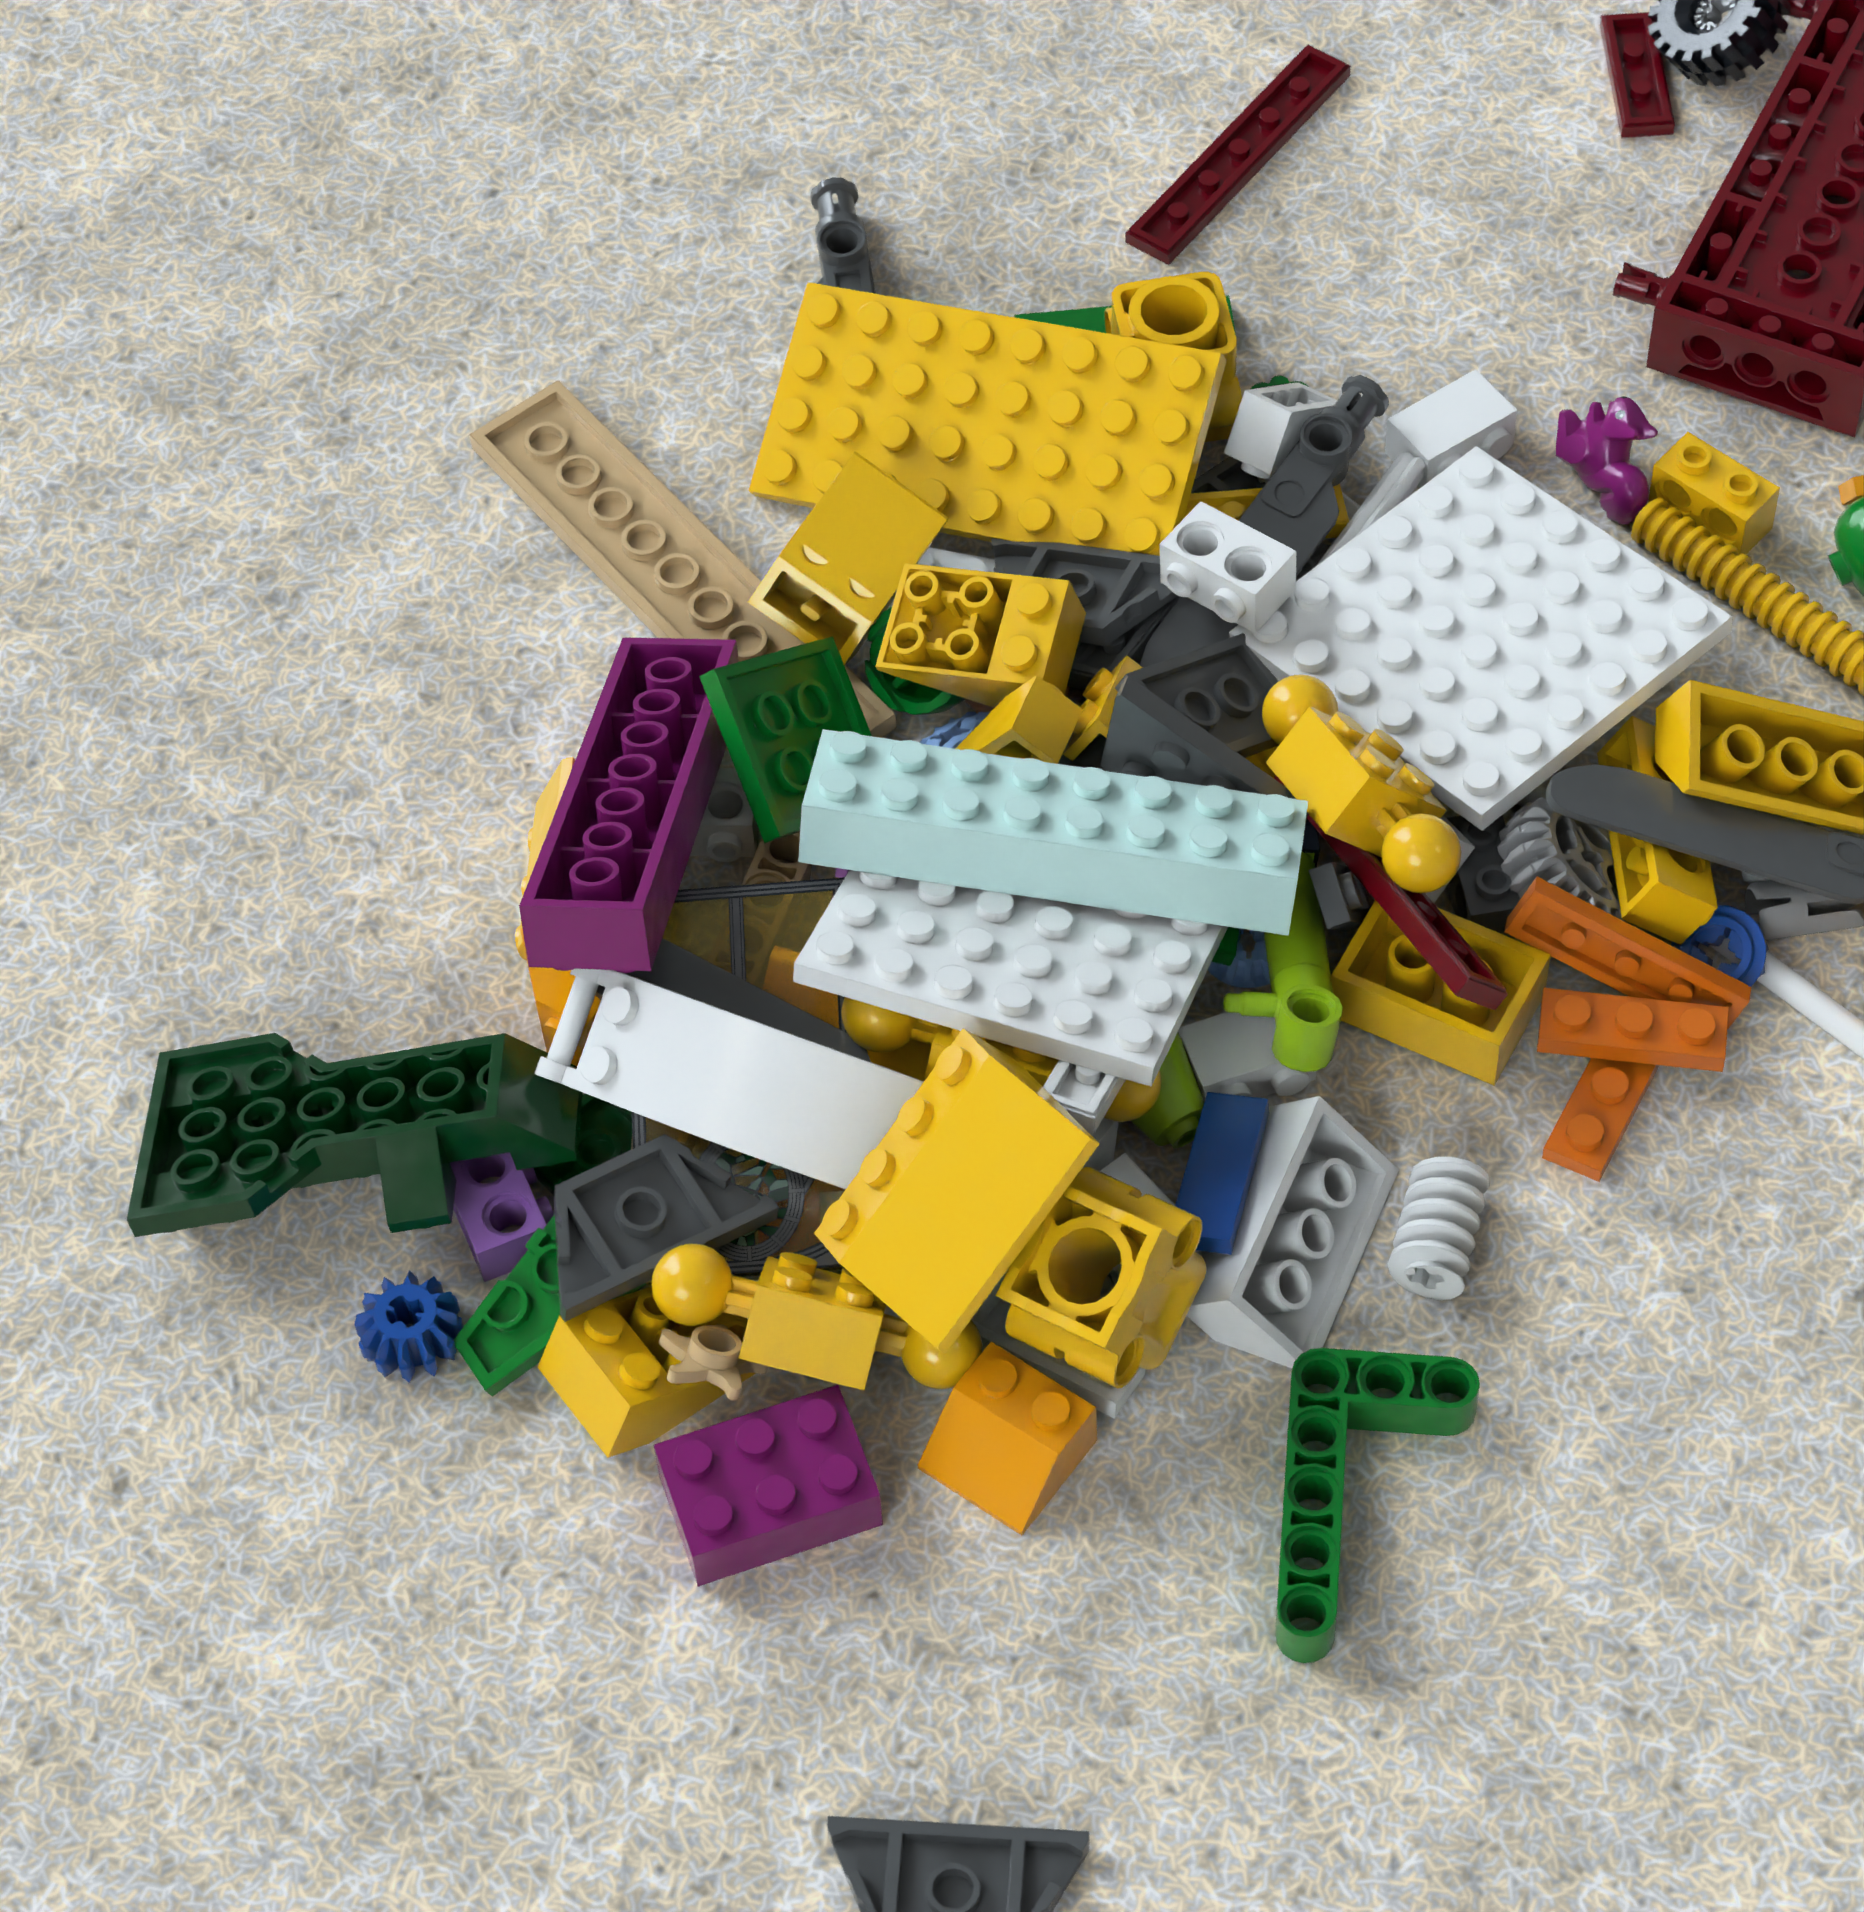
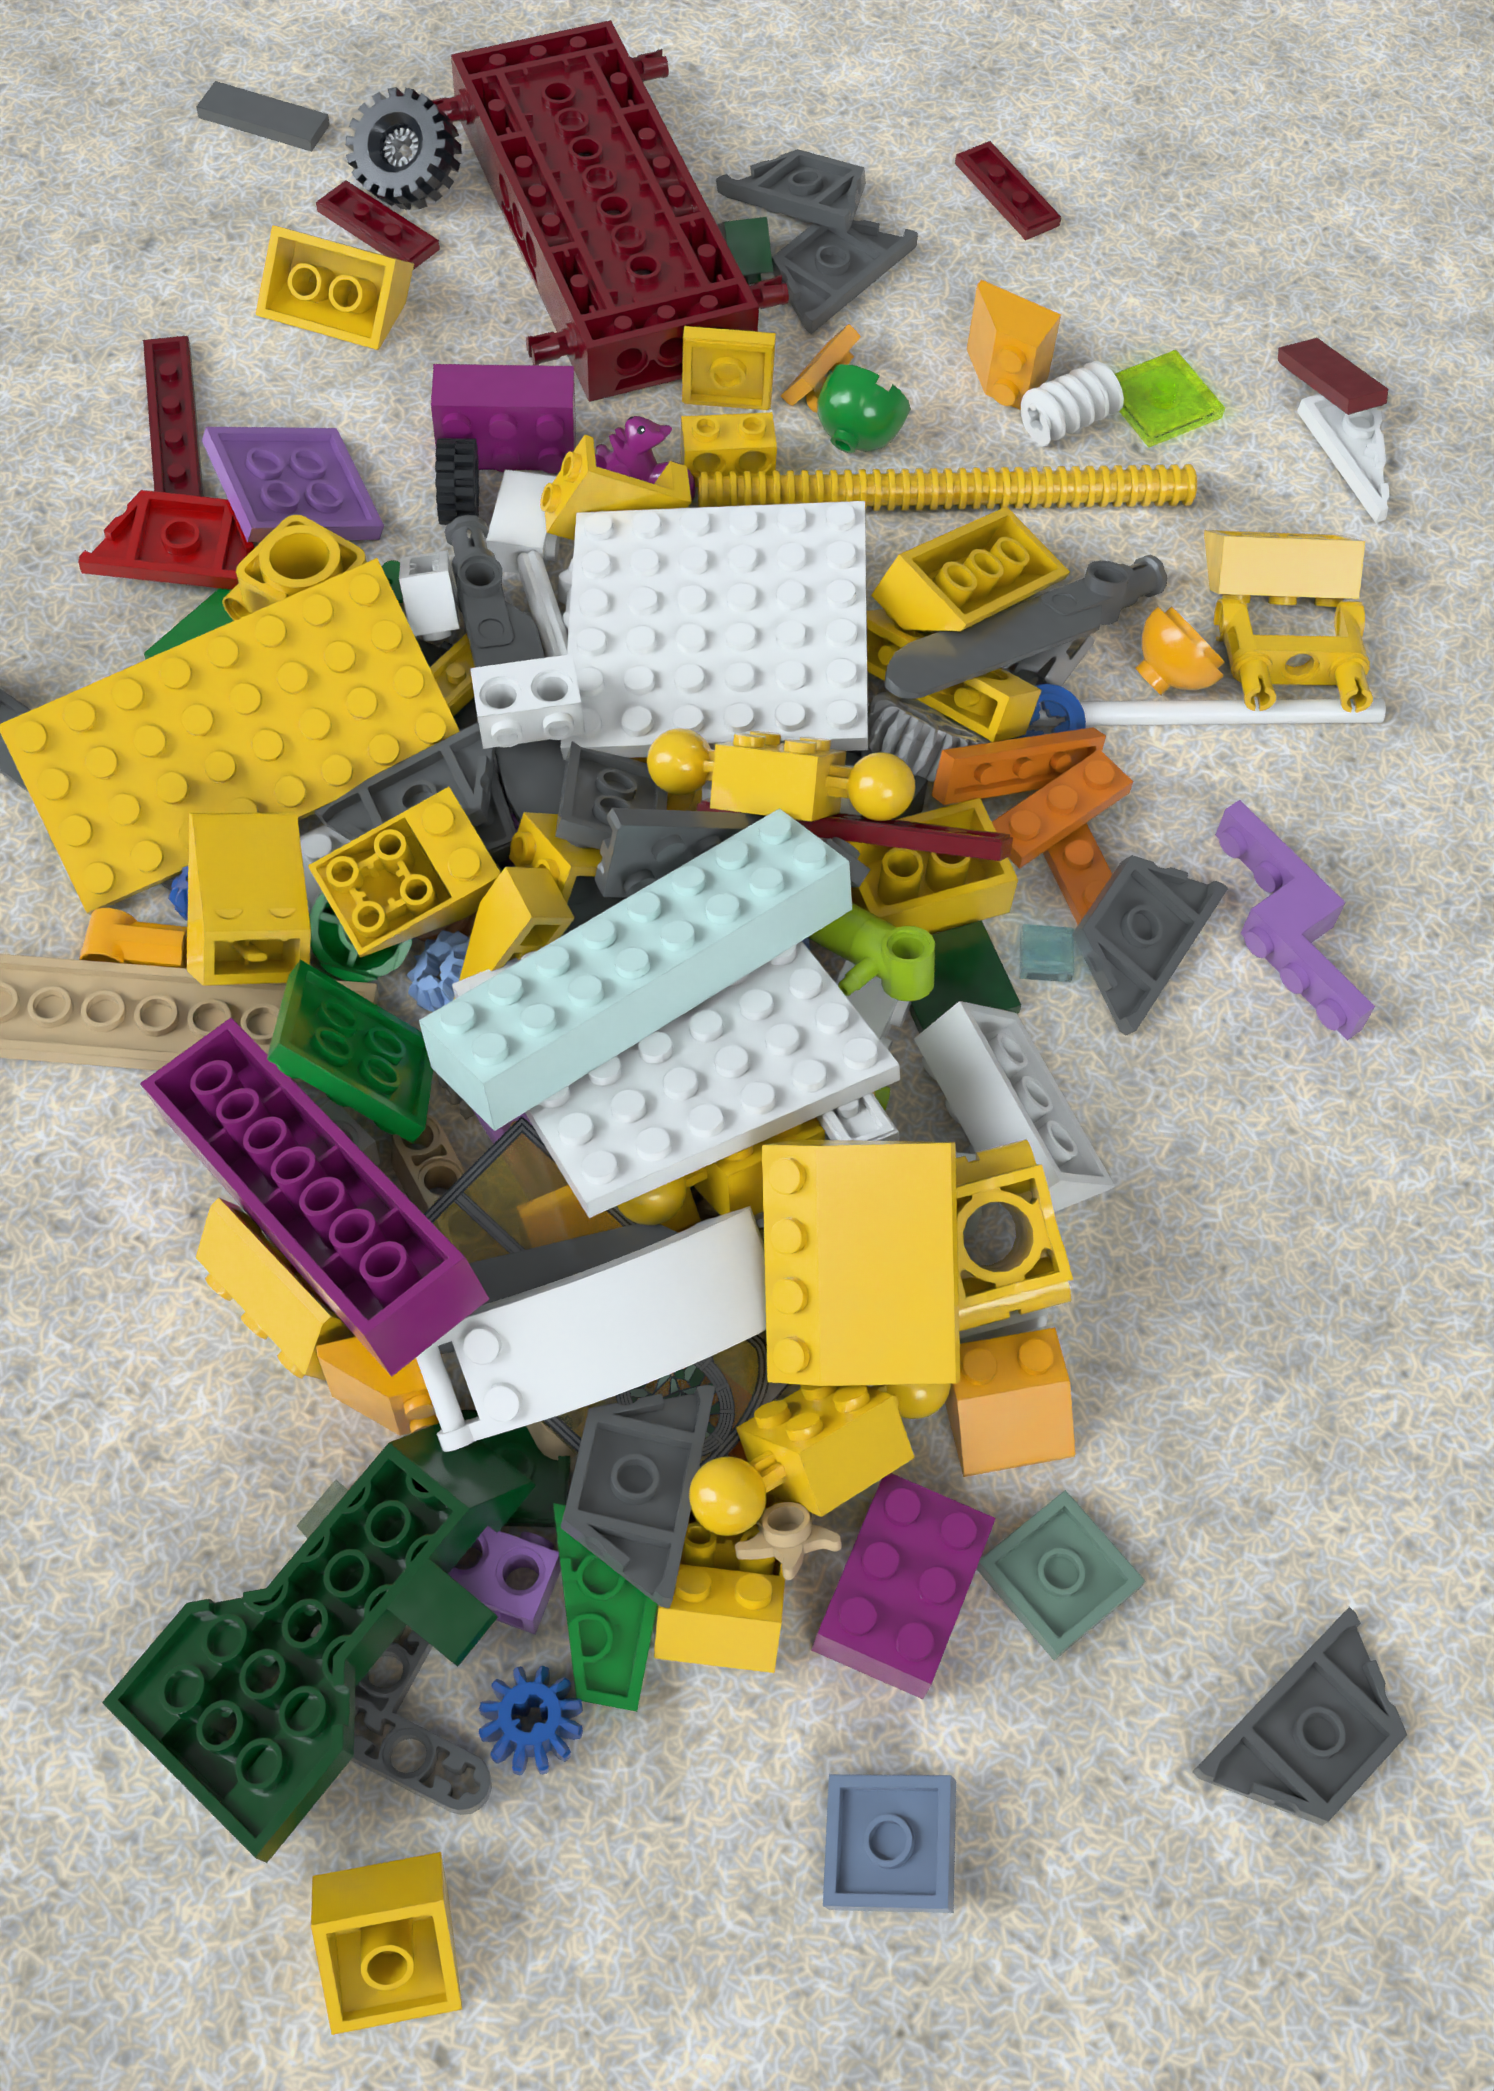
camera: 55 degrees left, 5 degrees up
(160, 1372) = (385, 1943): none -> yellow slope
(323, 1228) = (381, 1709): none -> dark grey beam
(549, 1641) = (890, 1843): none -> sand blue hinge
(748, 531) = (122, 939): none -> light orange piece
(897, 1596) = (1059, 1574): none -> sand green plate
(1129, 229) = (171, 542): none -> red wing
(1222, 1166) = (946, 1100): blue tile -> none
(1284, 254) = (289, 473): none -> medium lavender plate
(1321, 1473) = (1215, 1240): green beam -> none
(1382, 1091) = (965, 972): none -> dark green tile
(1424, 350) = (456, 479): none -> black tyre
(1438, 1227) = (1089, 1029): white piece -> none
(1480, 1137) = (1046, 953): none -> clear light blue plate
(1502, 436) = (593, 489): none -> yellow panel
(1523, 103) = (332, 287): none -> yellow slope
(1528, 323) = (514, 412): none -> magenta brick
(1584, 1191) = (1142, 933): none -> dark grey wing
(1739, 1298) = (1291, 919): none -> medium lavender bracket
(1791, 420) = (728, 368): none -> yellow tile

